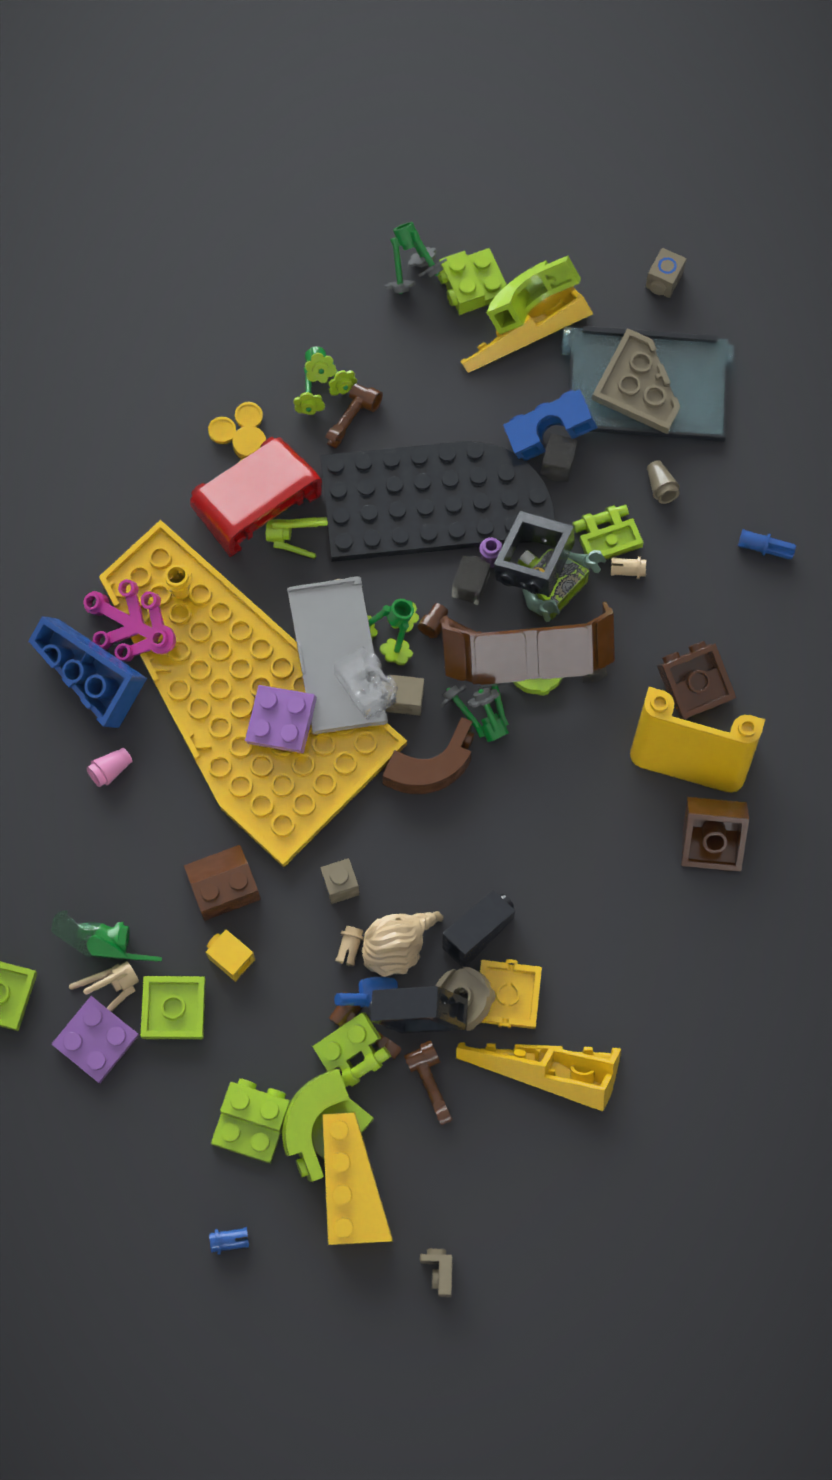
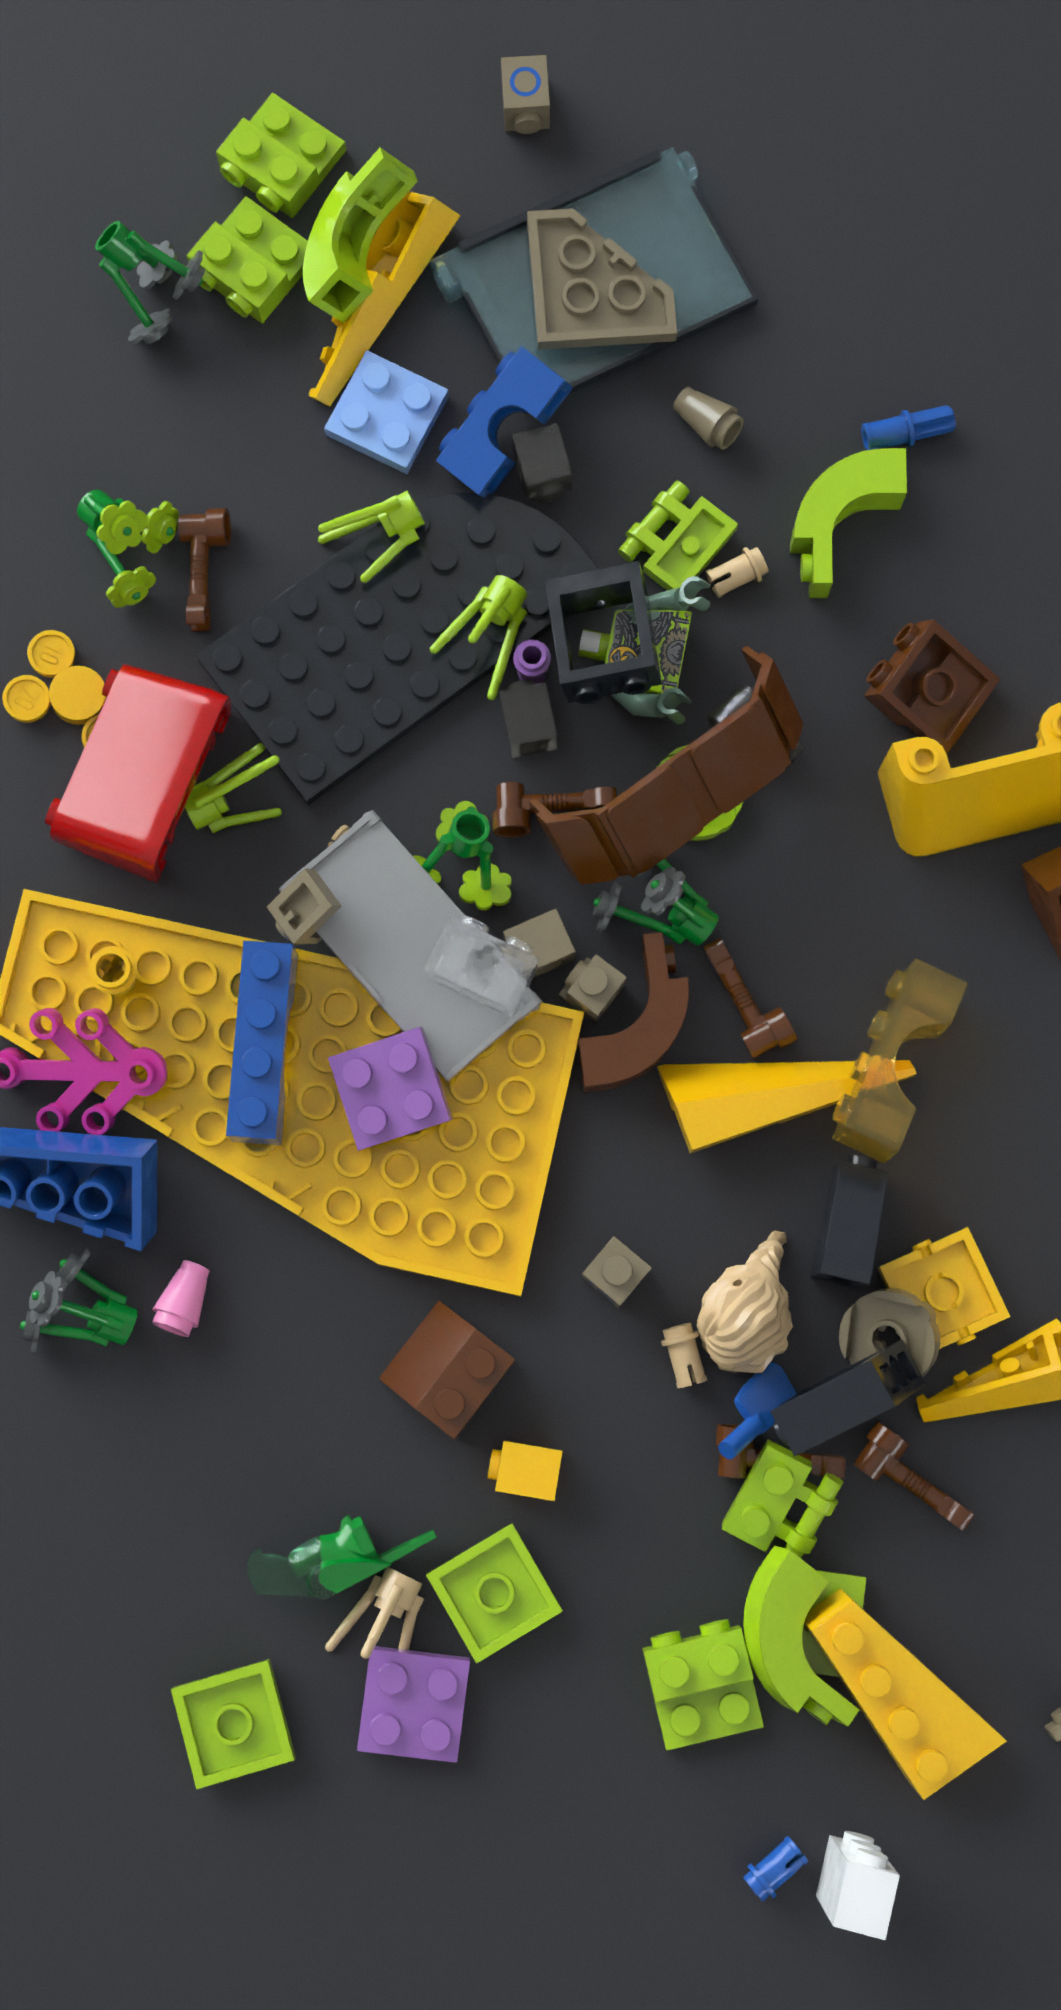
camera: 30 degrees left, 10 degrees up
(66, 754) = (108, 1319): none -> plant
(212, 678) = (260, 1043): none -> blue arch
(265, 1262) = (857, 1885): none -> white brick
(292, 603) = (303, 908): none -> dark tan bracket
(420, 732) = (593, 987): none -> dark tan brick
(460, 832) = (739, 1098): none -> yellow wedge
(464, 440) = (397, 515): none -> lime plant
(489, 511) = (497, 604): none -> lime plant
(495, 390) = (386, 412): none -> light blue plate
(497, 806) = (763, 1030): none -> reddish brown brick
(519, 238) = (279, 155): none -> lime plate
(585, 839) = (877, 1110): none -> clear yellow arch
(709, 555) = (857, 483): none -> lime arch

